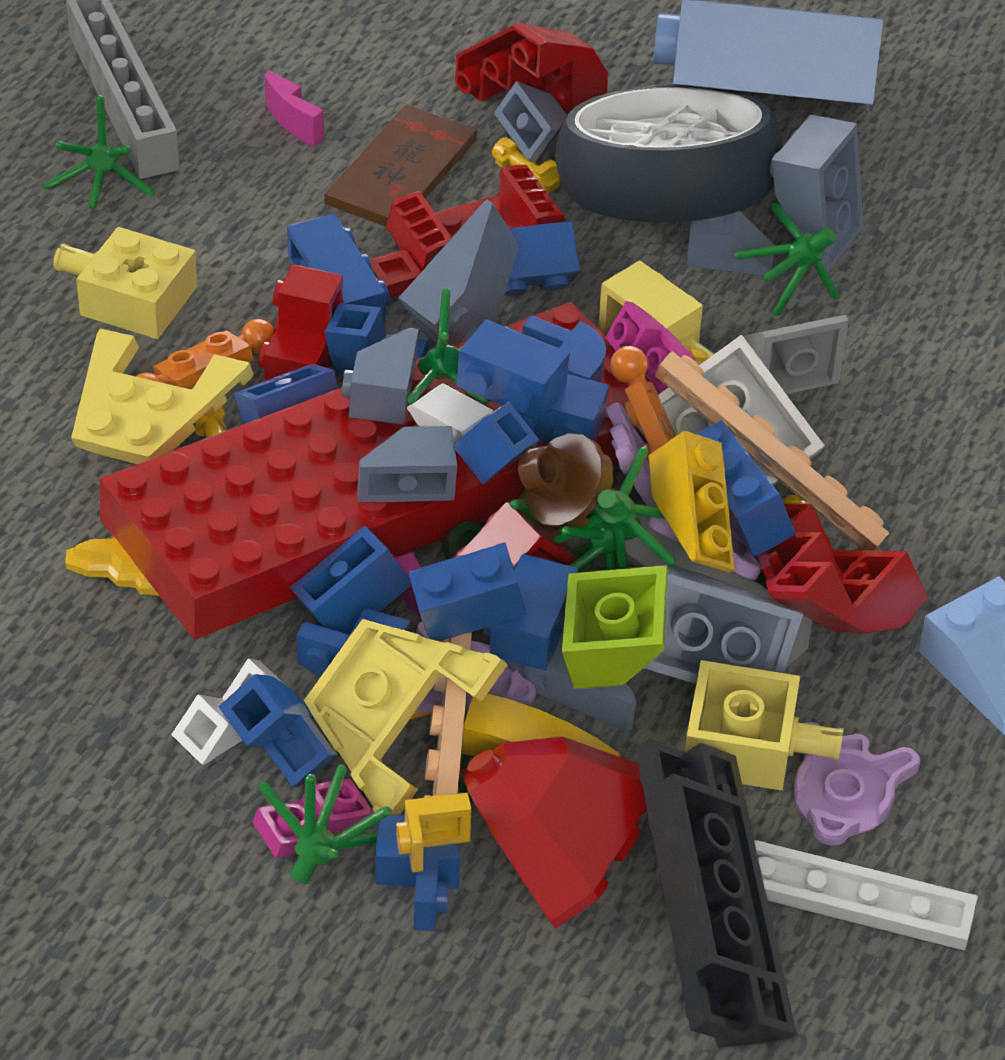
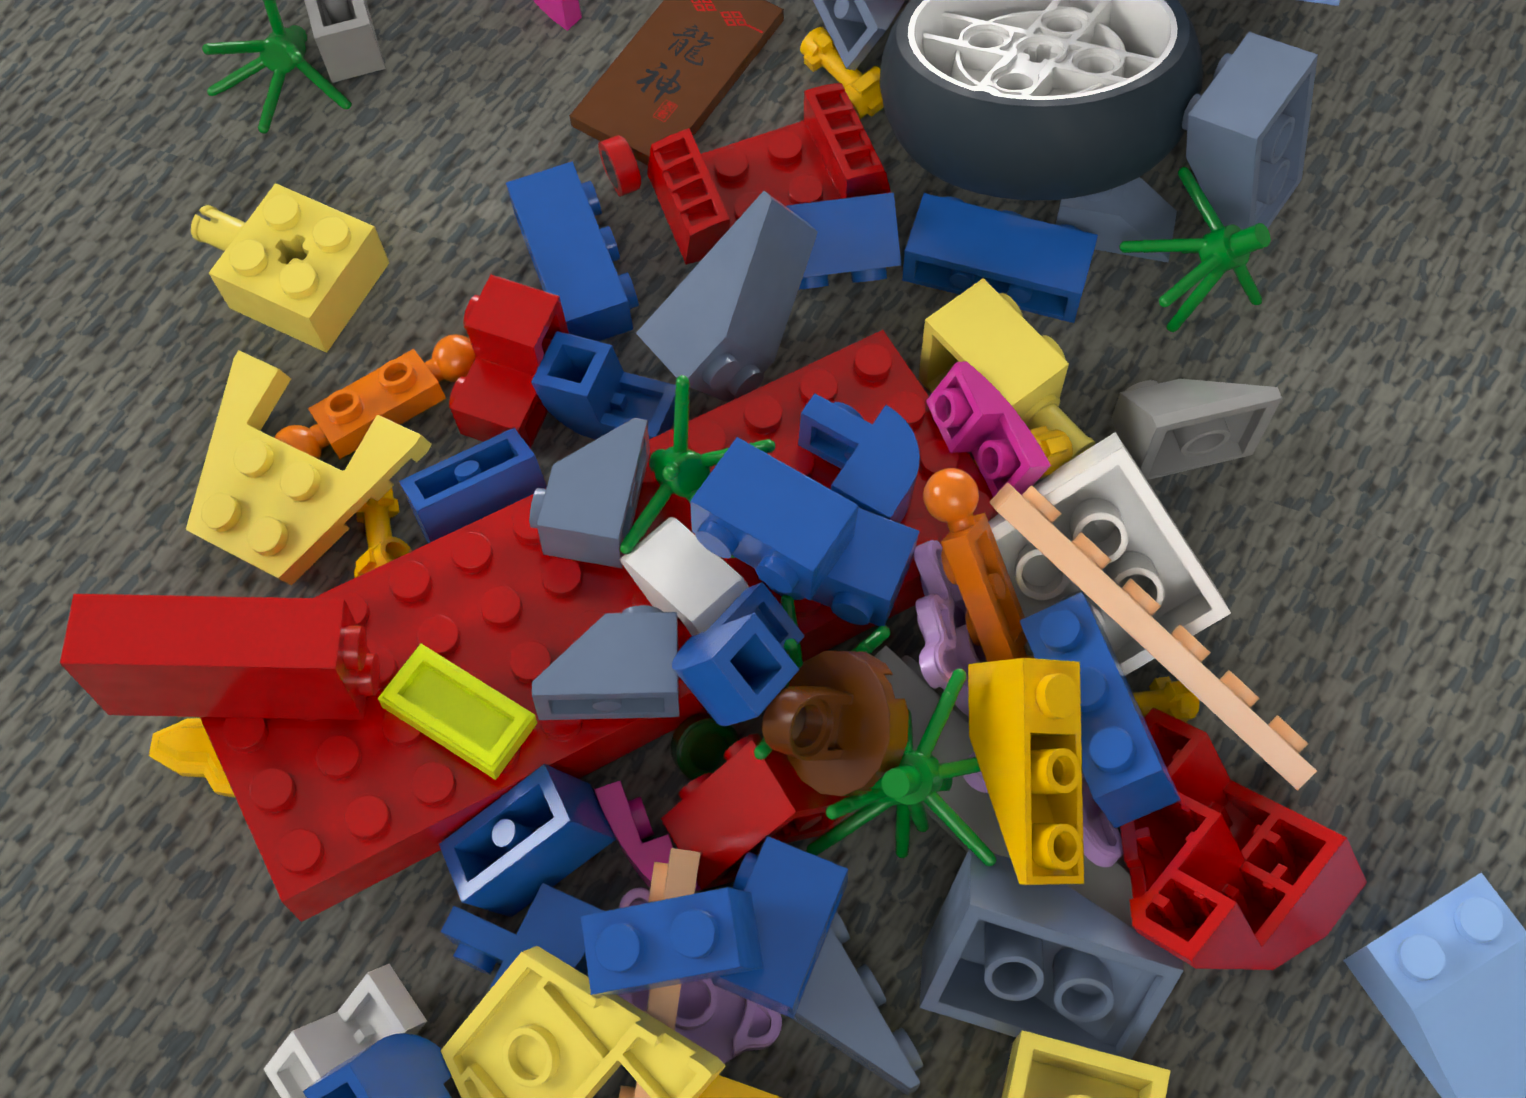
camera: 10 degrees right, 20 degrees up
(152, 448) = (220, 656): none -> red brick
(303, 494) = (458, 711): none -> neon yellow tile
(366, 221) = (620, 165): none -> red tile
(396, 270) = (651, 254): red plate -> none
(613, 624) = (895, 985): lime slope -> none
(684, 265) = (1019, 256): none -> blue brick

